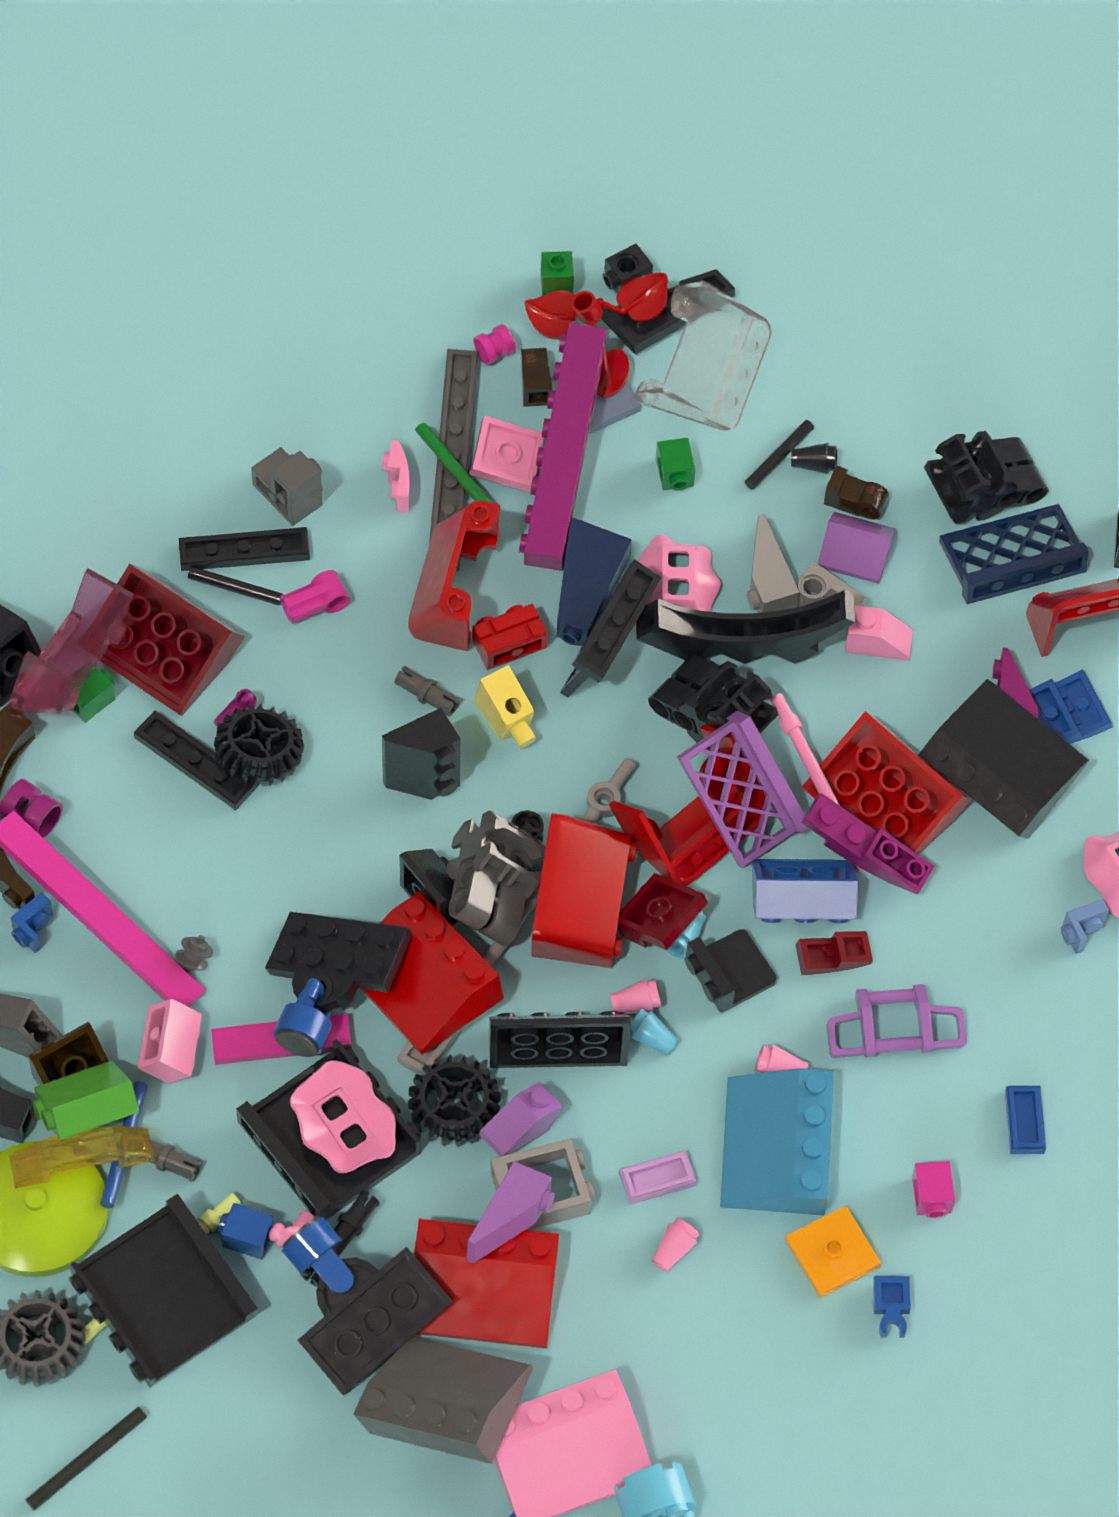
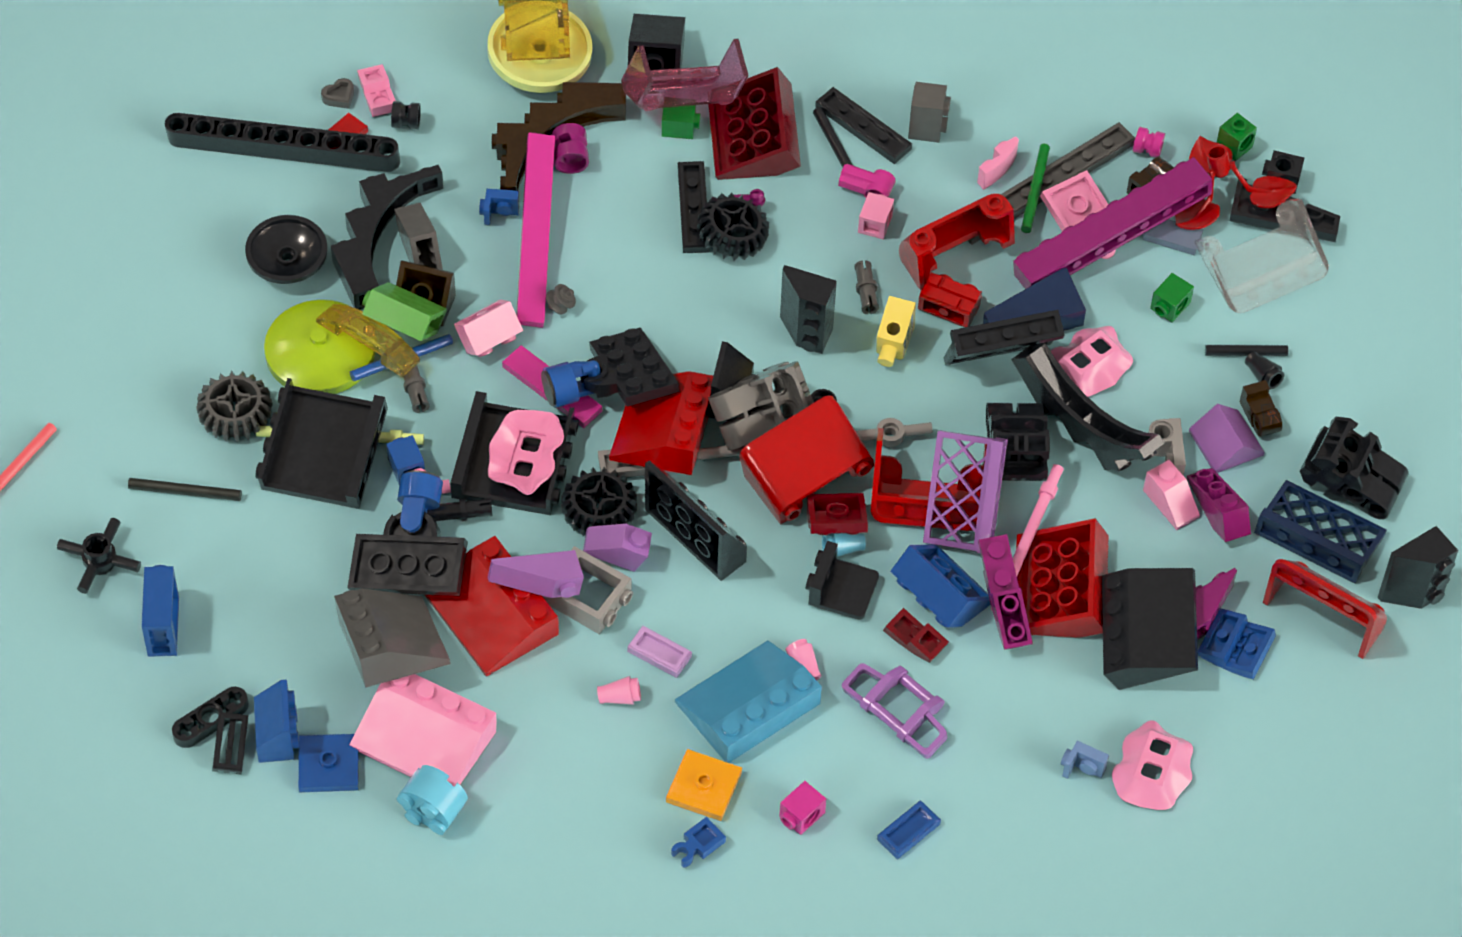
camera: 50 degrees right, 5 degrees down
(359, 619) = (876, 215): none -> bright pink brick
(636, 997) = (773, 551): bright pink cone -> none
(652, 1032) = (754, 574): medium azure cone -> none
(771, 580) = (1149, 400): light grey slope -> none
(923, 605) = (1221, 504): none -> magenta slope

